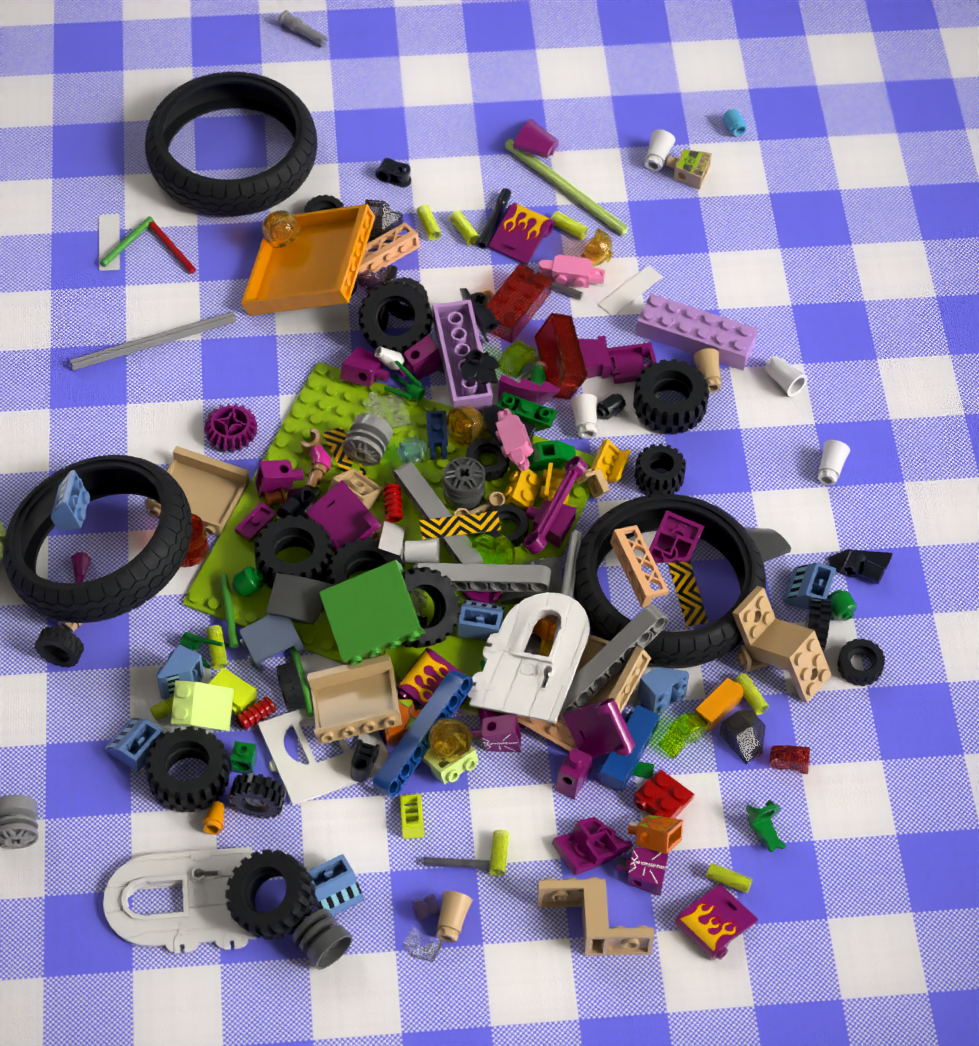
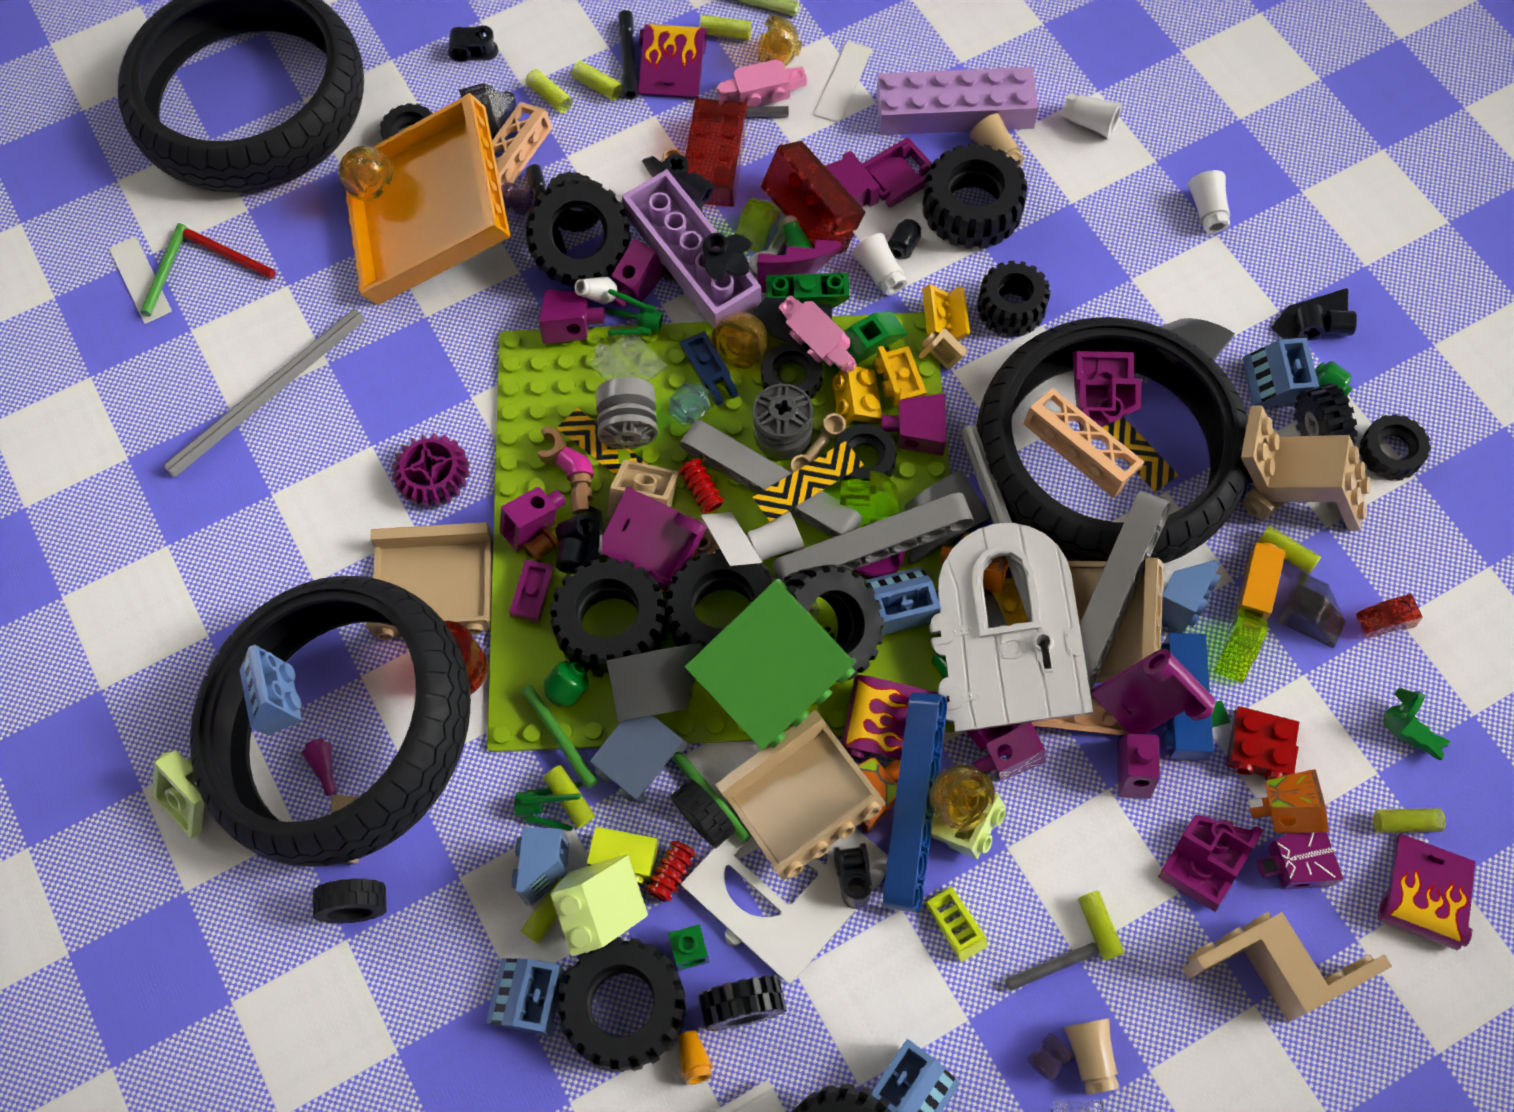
camera: 20 degrees left, 10 degrees up
(536, 540) = (918, 403): magenta piece -> none

